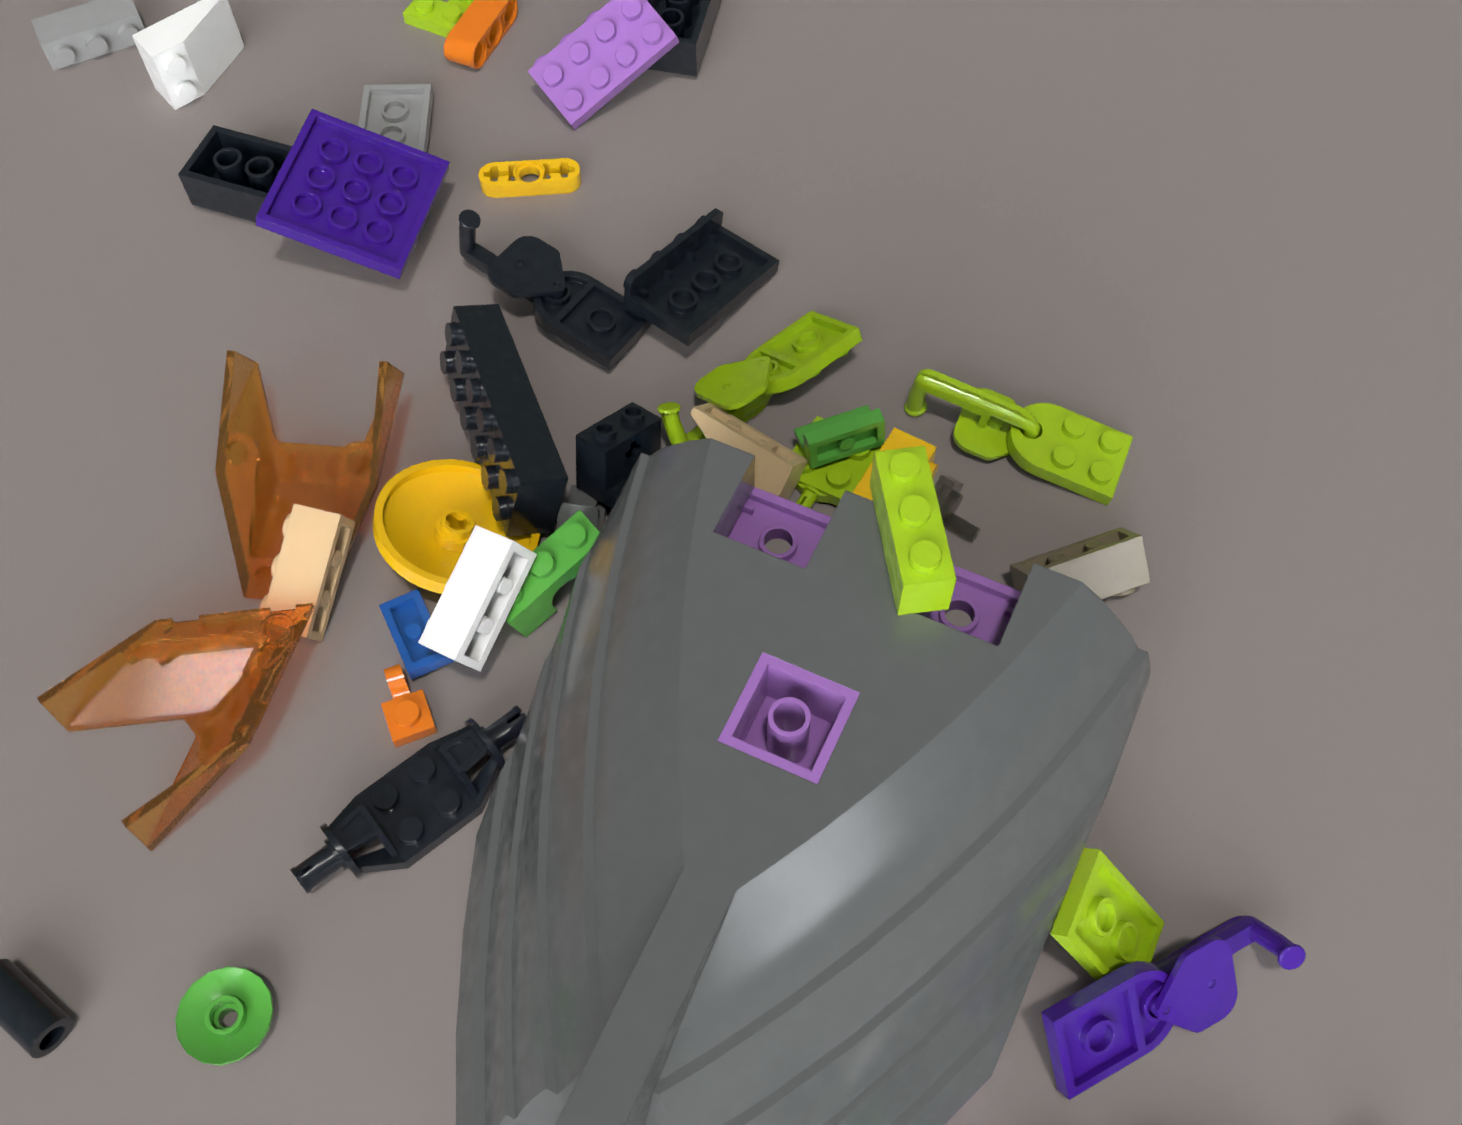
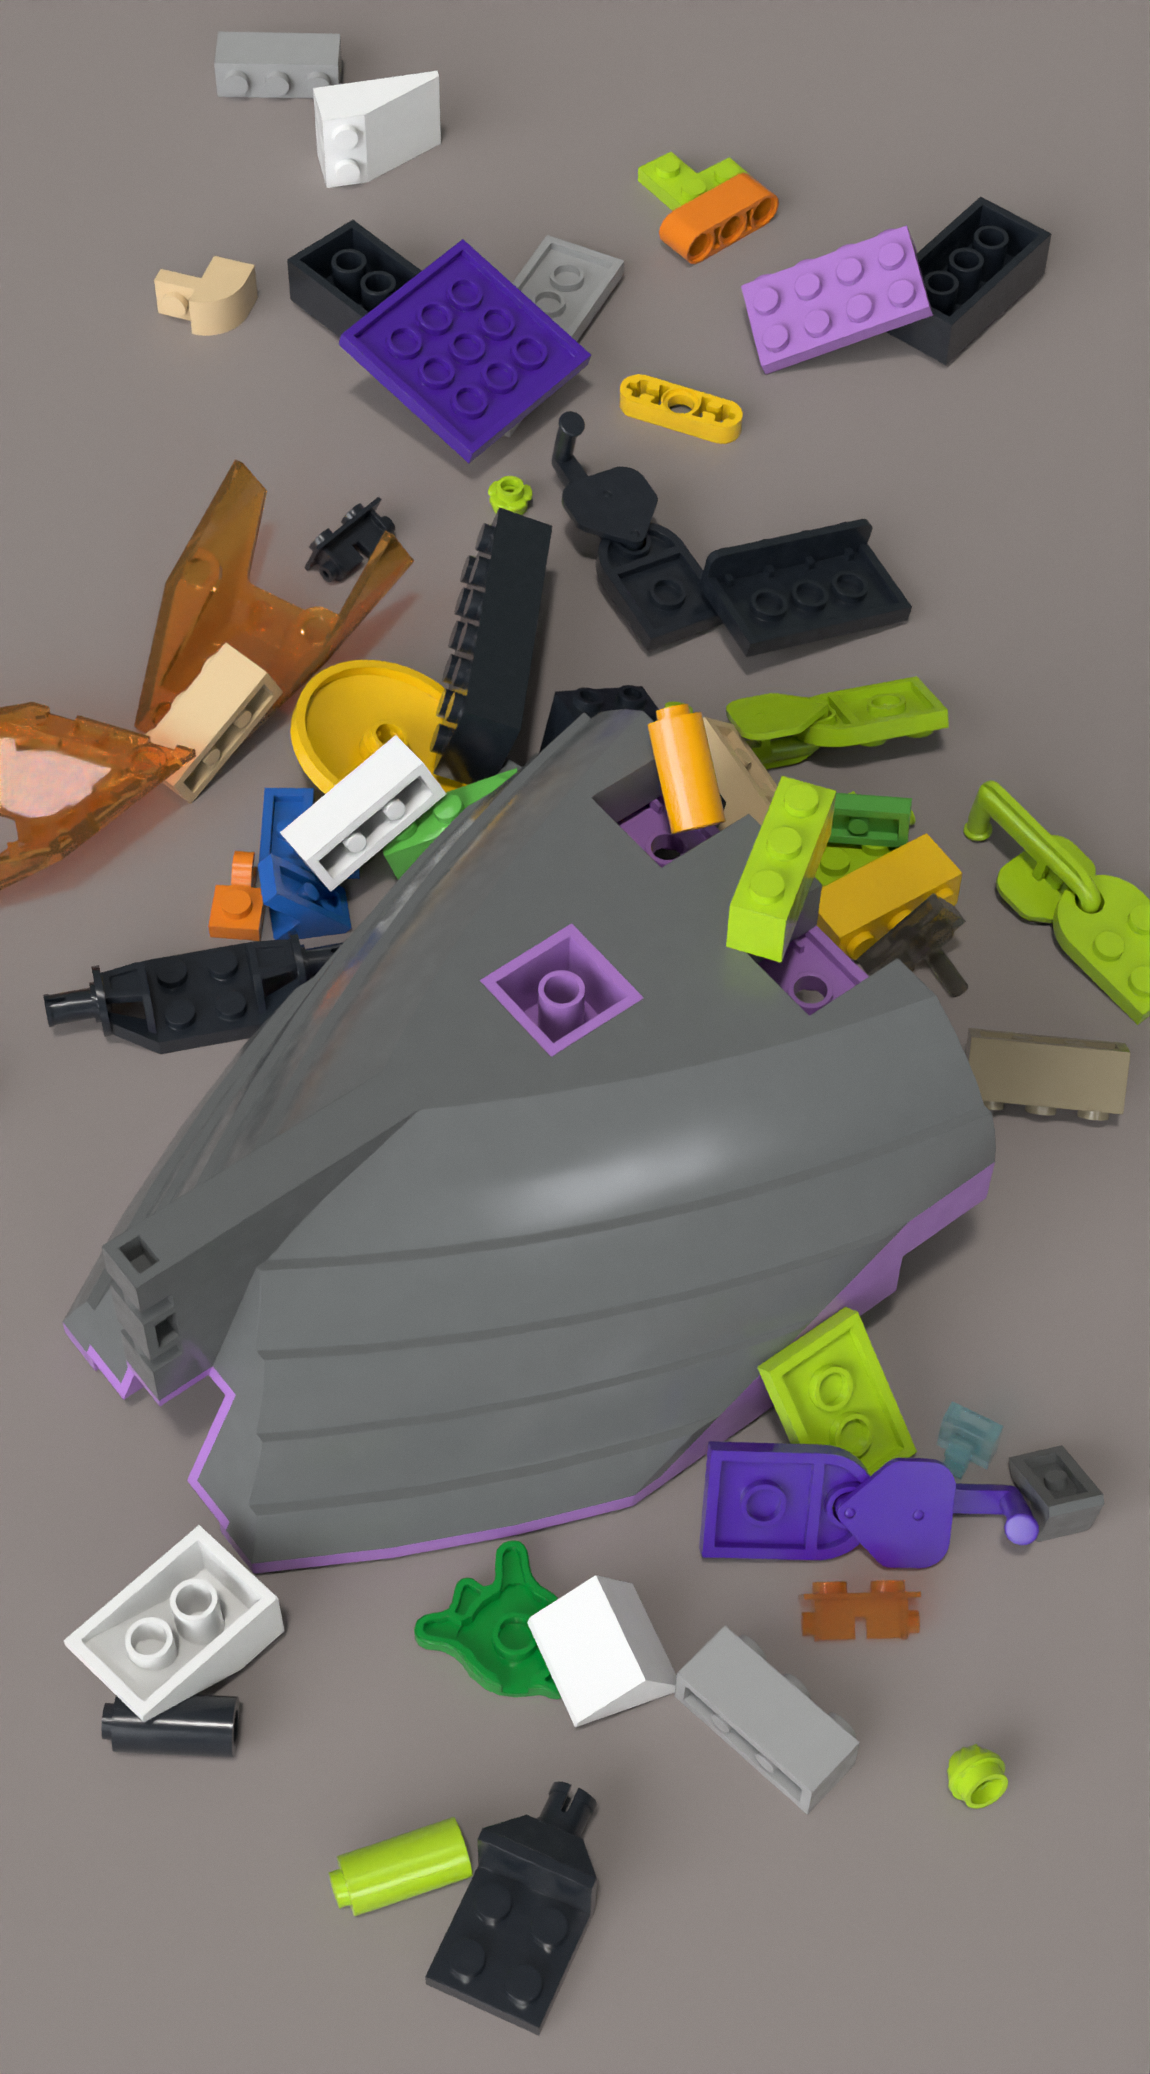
camera: 25 degrees right, 5 degrees down
(133, 228) = (213, 302): none -> tan brick
(332, 388) = (336, 549): none -> black hinge
(441, 292) = (510, 494): none -> lime plate
(457, 689) = (301, 901): none -> blue slope
(777, 475) = (685, 769): none -> light orange brick
(1185, 1086) = (883, 1608): none -> clear orange hinge
(1199, 896) = (967, 1439): none -> clear light blue tile
(1285, 904) = (1058, 1490): none -> dark grey slope

